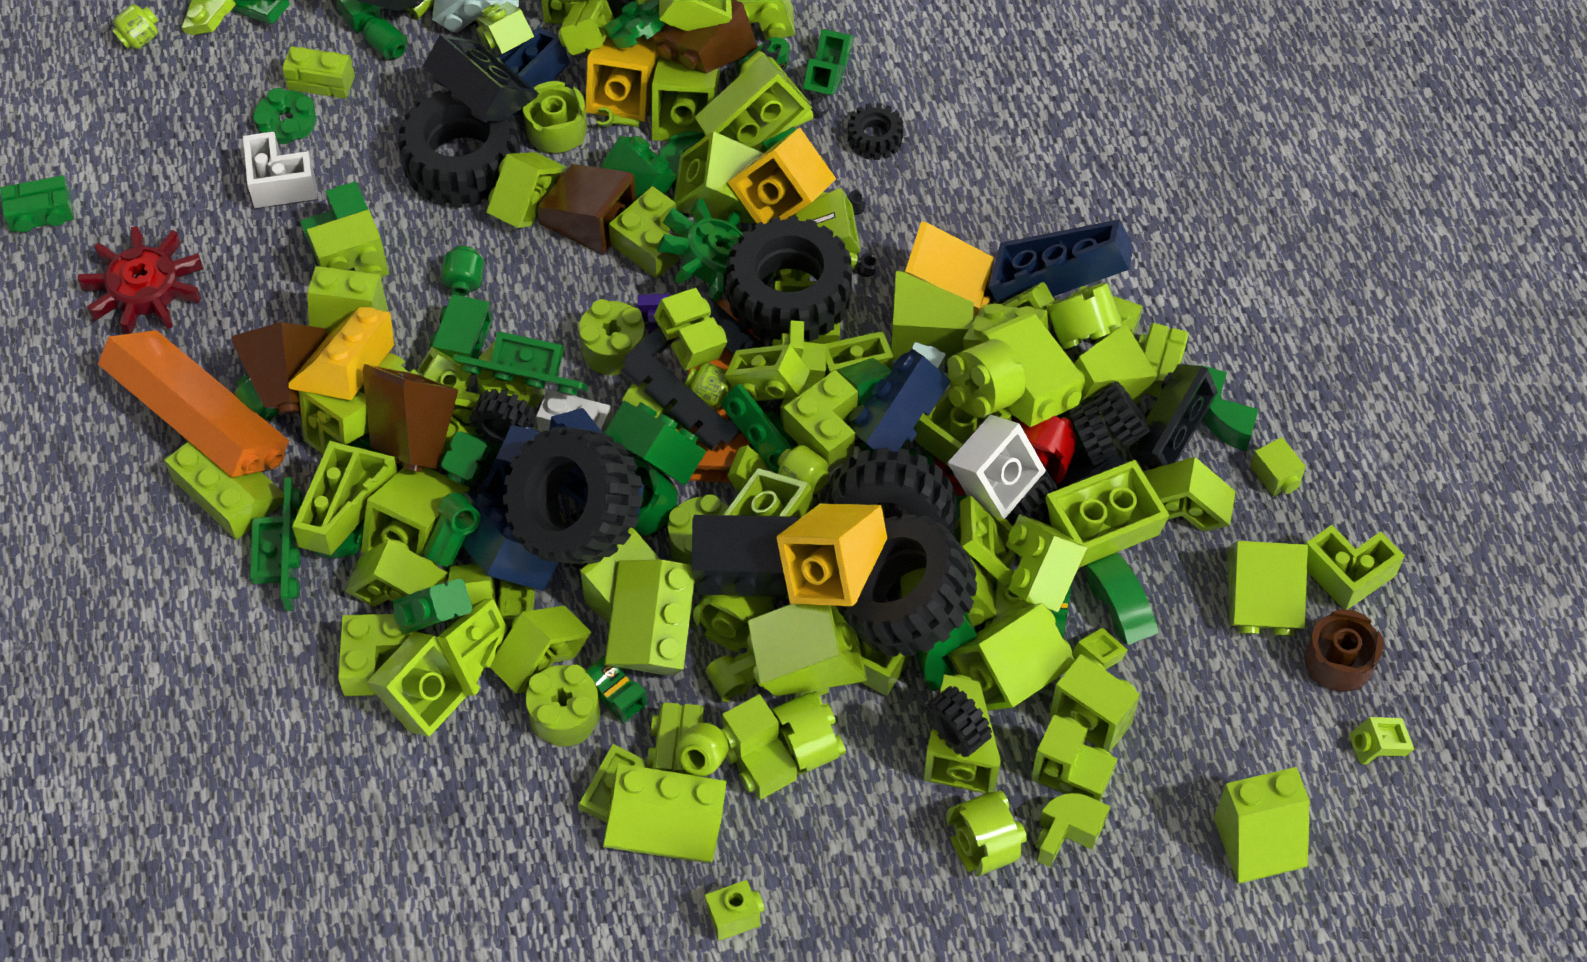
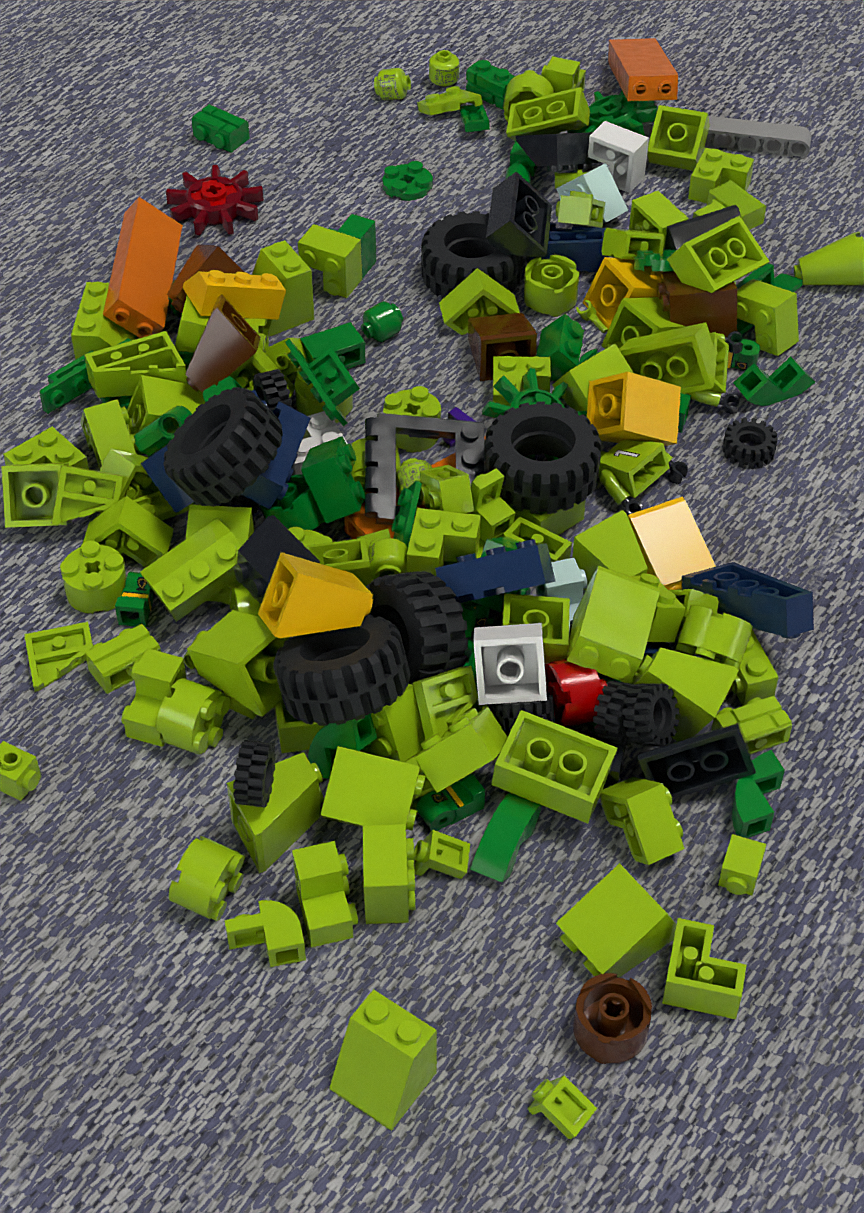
camera: 50 degrees right, 10 degrees down
(276, 177) = (354, 194): white brick -> none
(318, 72) = (454, 170): lime brick -> none
(432, 606) = (85, 449): green brick -> none
(664, 813) = (55, 682): lime slope -> none
(688, 317) = (437, 429): lime piece -> none
(702, 749) = (112, 660): lime head -> none
(985, 378) = (564, 597): lime brick -> none

